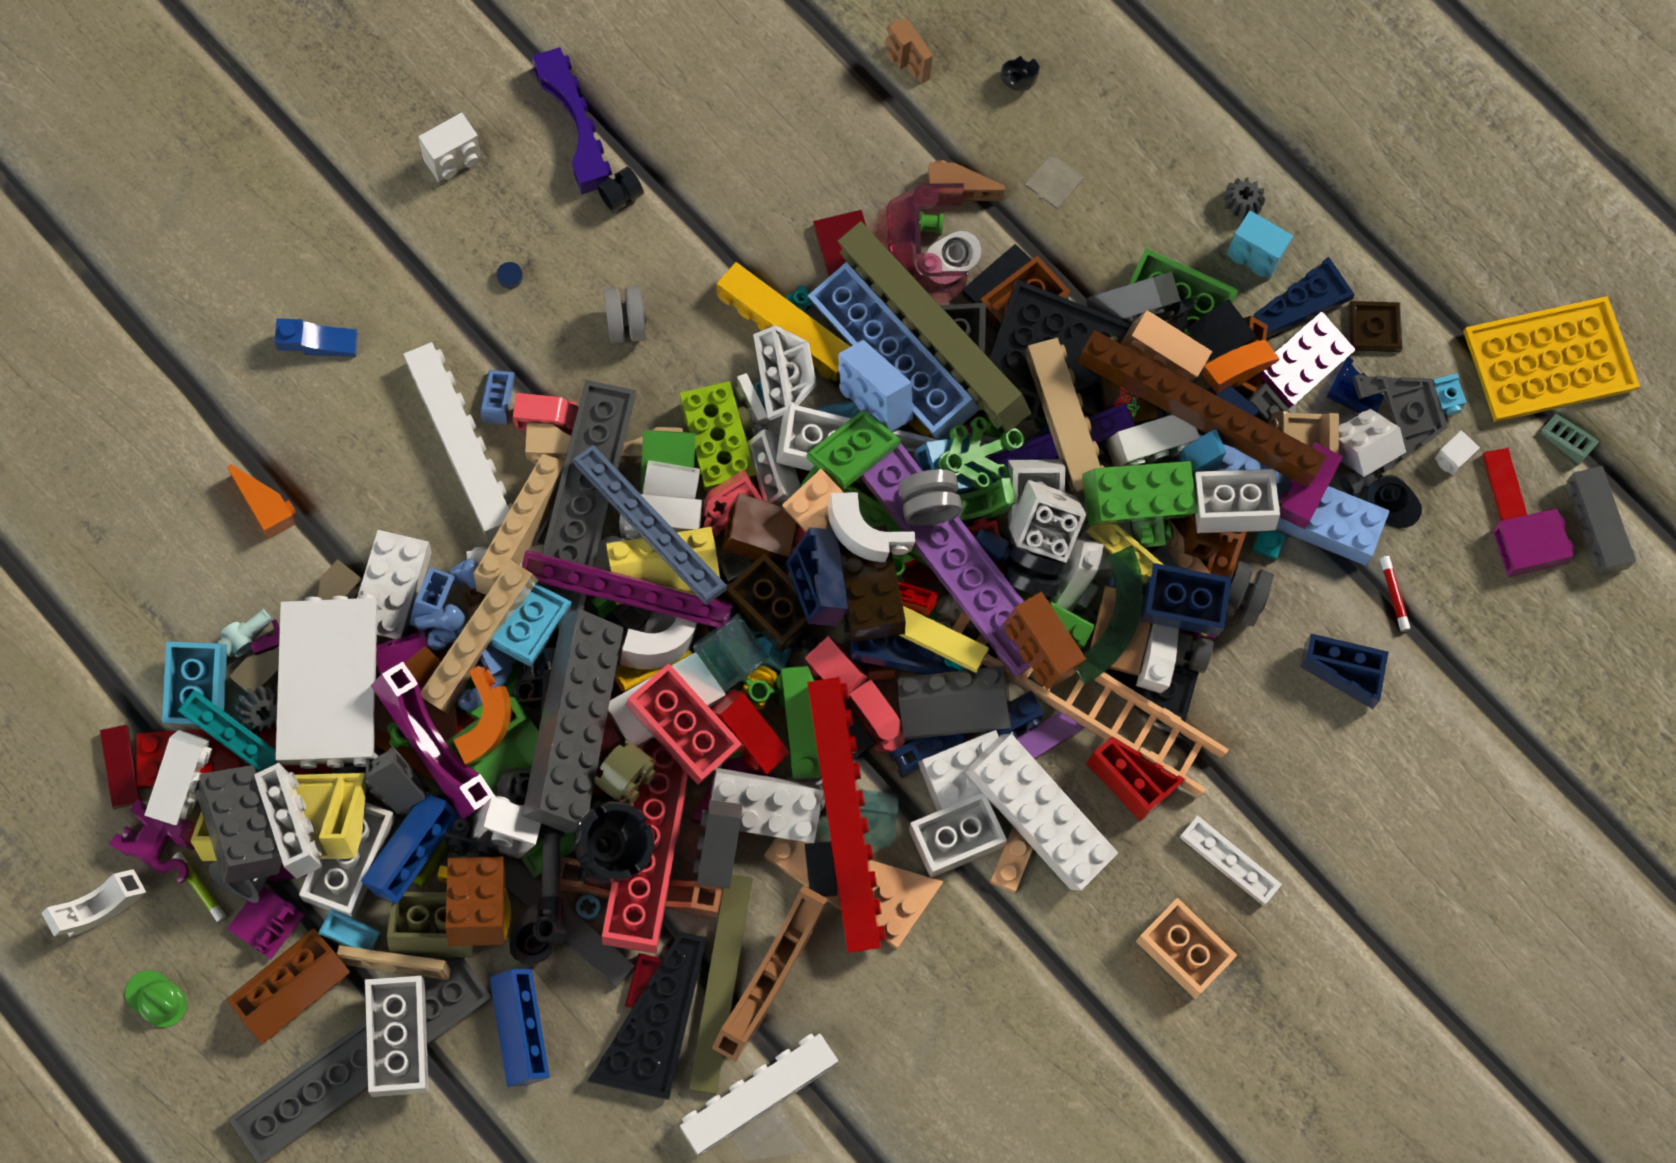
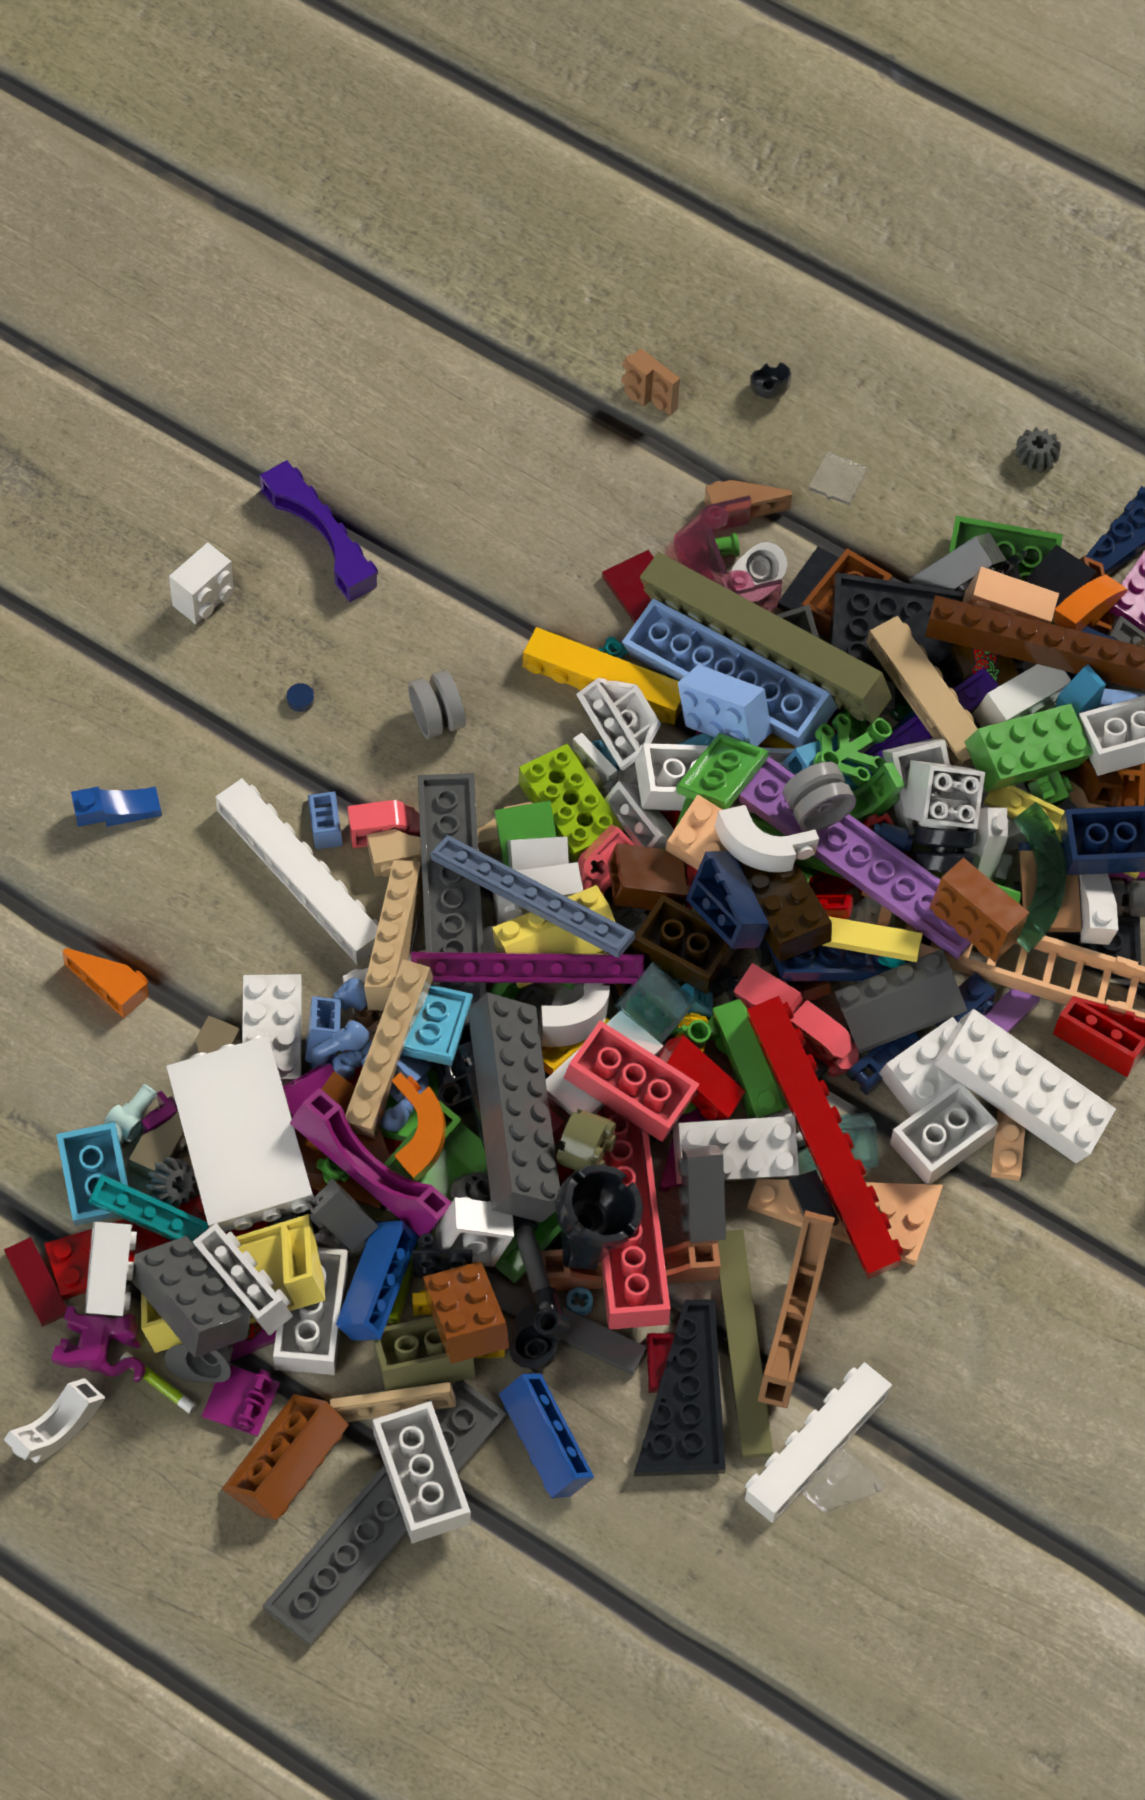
camera: 10 degrees left, 10 degrees down
(156, 998) = (145, 1506): bright green piece -> none
(348, 931) = (330, 1384): medium azure tile -> none
(620, 189) = (388, 588): black wheel -> none
(1259, 245) = (1069, 488): medium azure brick -> none

